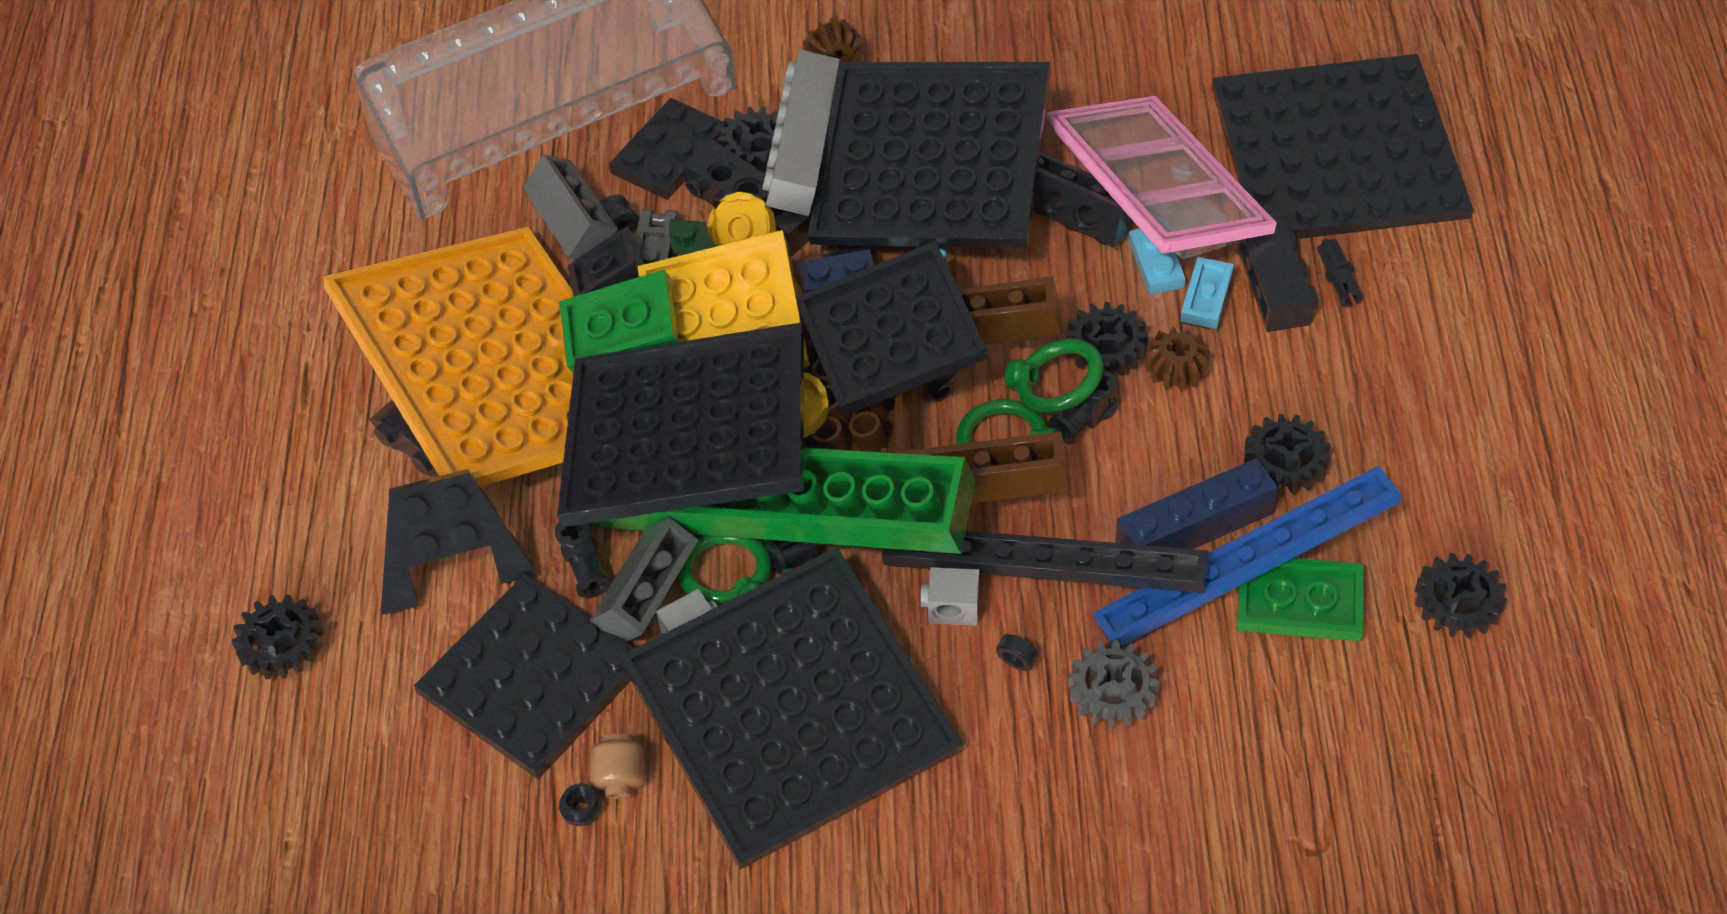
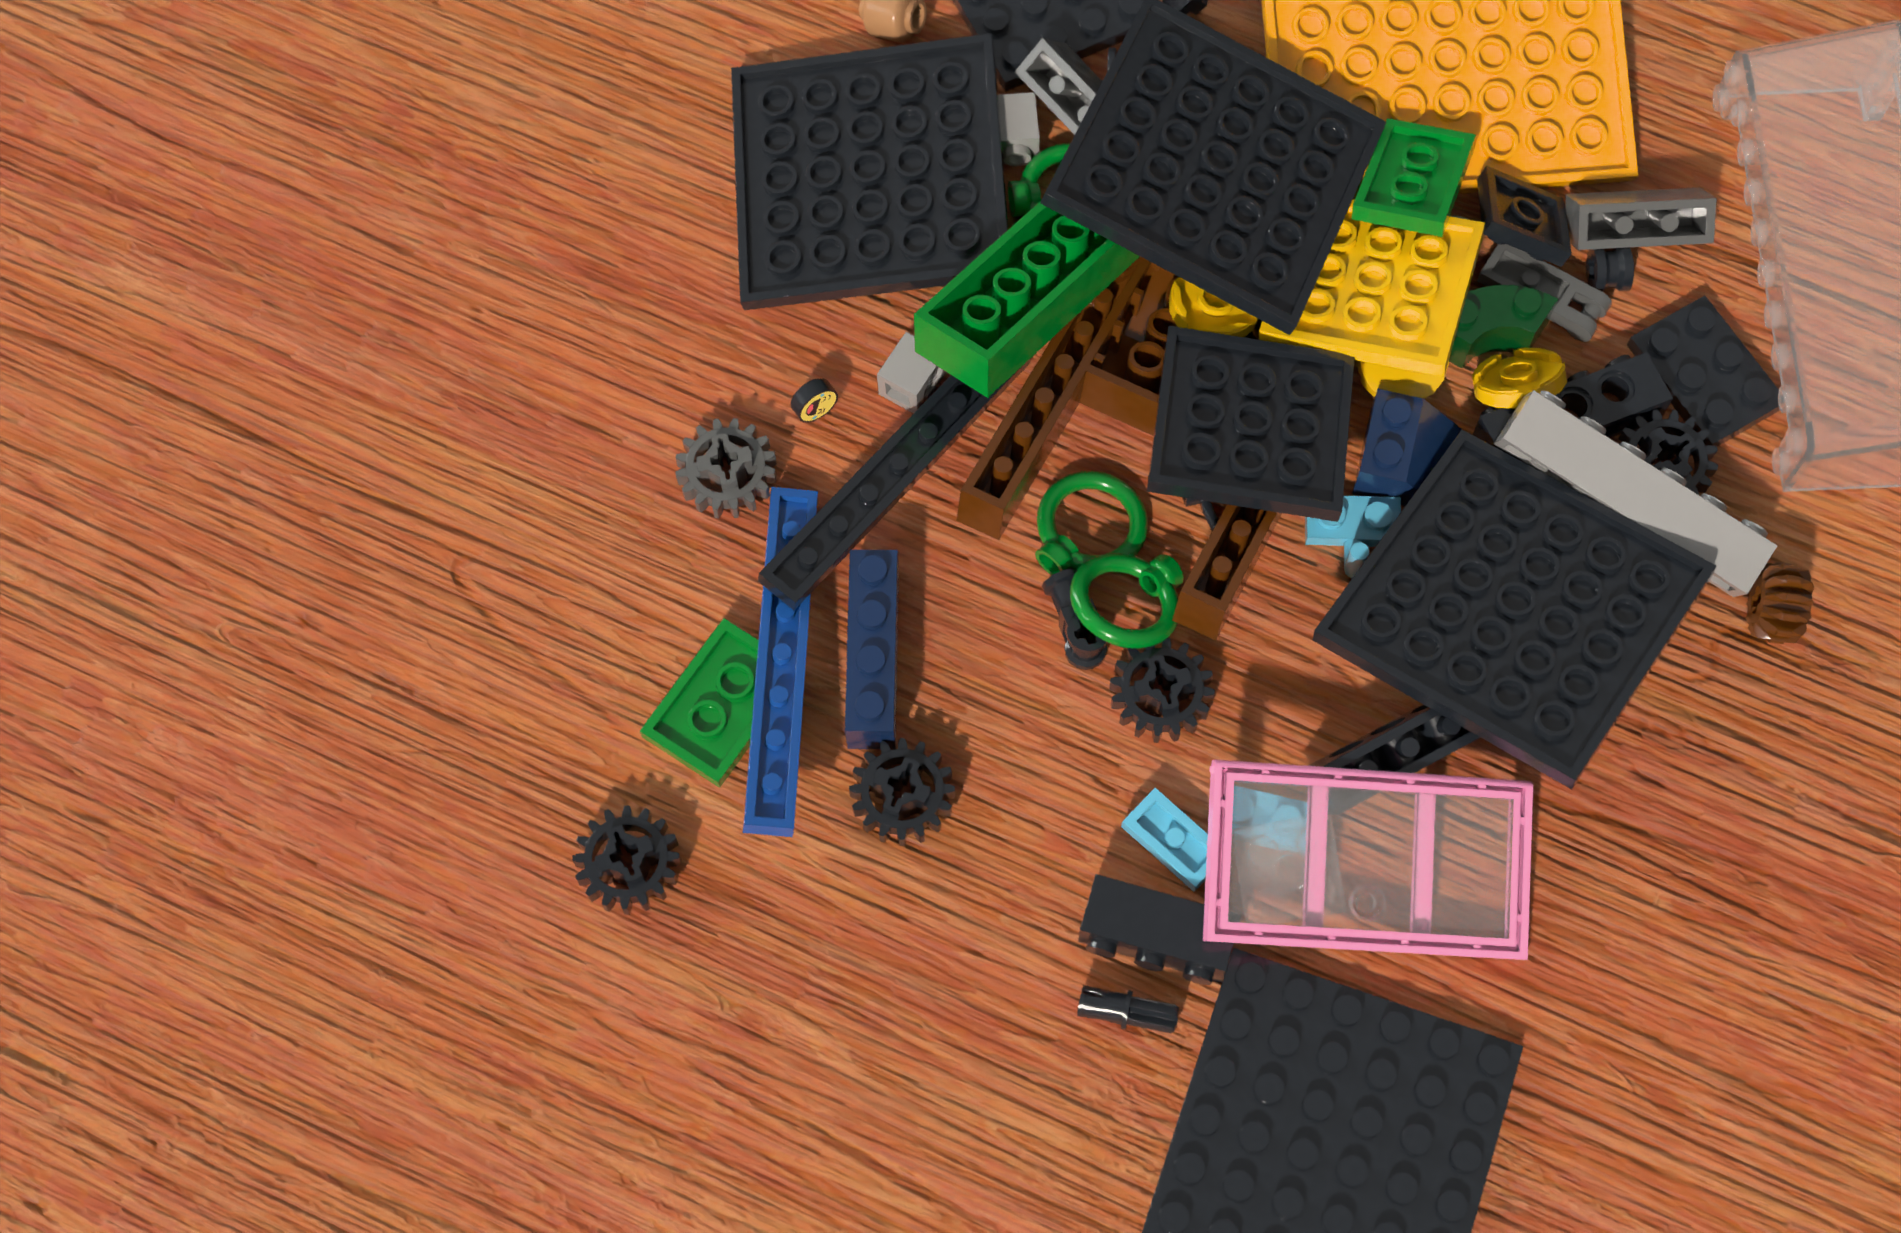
camera: 115 degrees right, 15 degrees up
(1177, 359) = (1080, 737): reddish brown gear -> none

